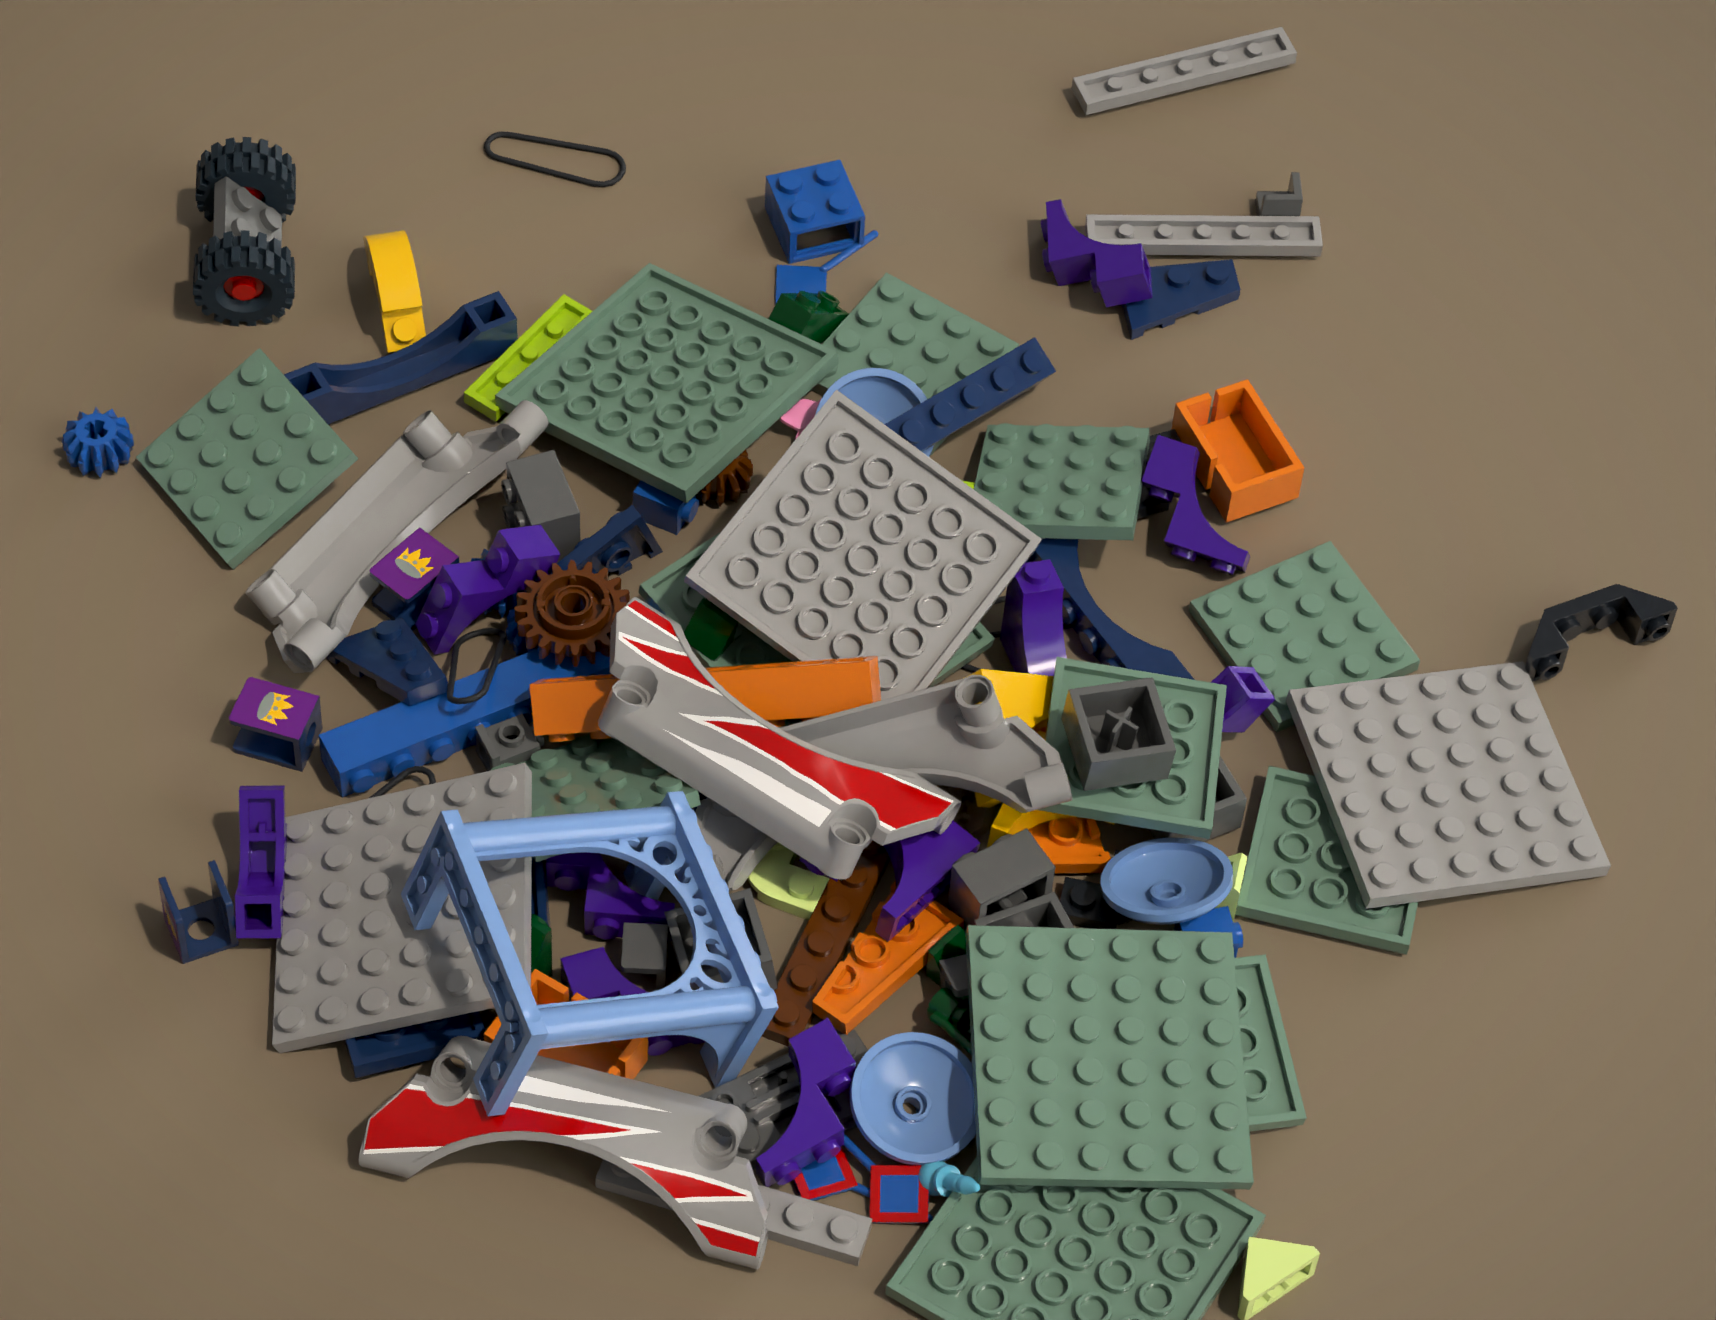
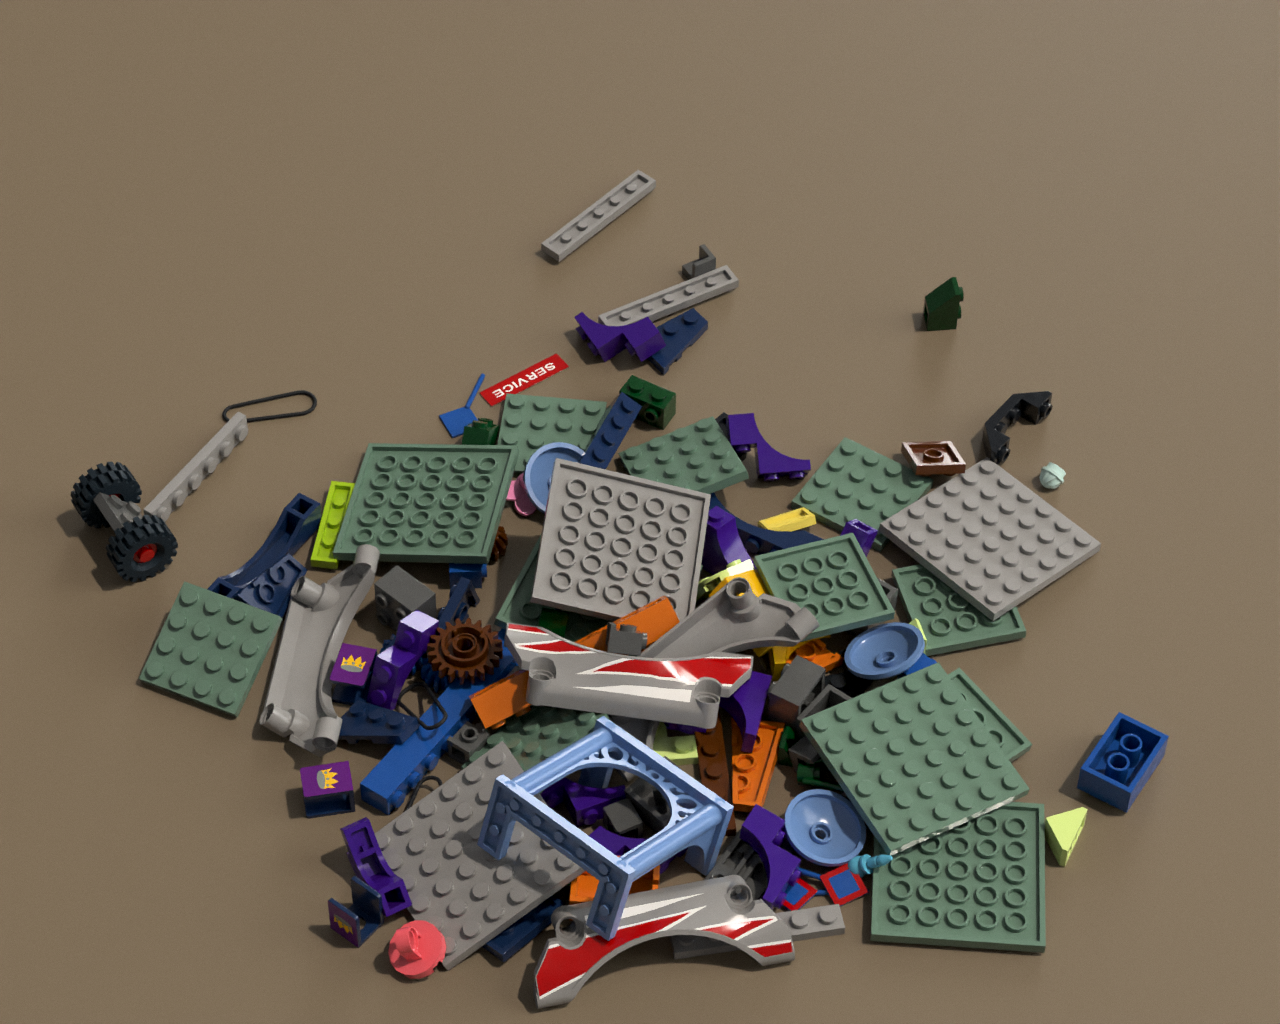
camera: 25 degrees left, 5 degrees down
(97, 442) = (111, 679): blue gear -> none
(246, 1001) = (417, 949): none -> coral tile
(377, 414) = (273, 587): none -> dark blue wing
(395, 202) = (198, 468): none -> light grey plate
(397, 288) = (234, 513): yellow arch -> none
(776, 695) = (625, 640): none -> dark grey brick
(812, 201) = (441, 371): blue piece -> none
(929, 263) = (524, 379): none -> red sticker
(1023, 662) = (708, 584): none -> yellowish green plate
(1081, 373) = (656, 402): none -> dark green brick
(1118, 734) = (820, 580): dark grey brick -> none
(1165, 629) = (789, 521): none -> light yellow tile
(1240, 450) = (776, 408): orange piece -> none
(1422, 1207) = (1122, 762): none -> blue brick
(1437, 628) = (933, 458): none -> reddish brown plate
(1596, 410) = (943, 306): none -> dark green slope
(1601, 732) = (1052, 476): none -> light aqua plate

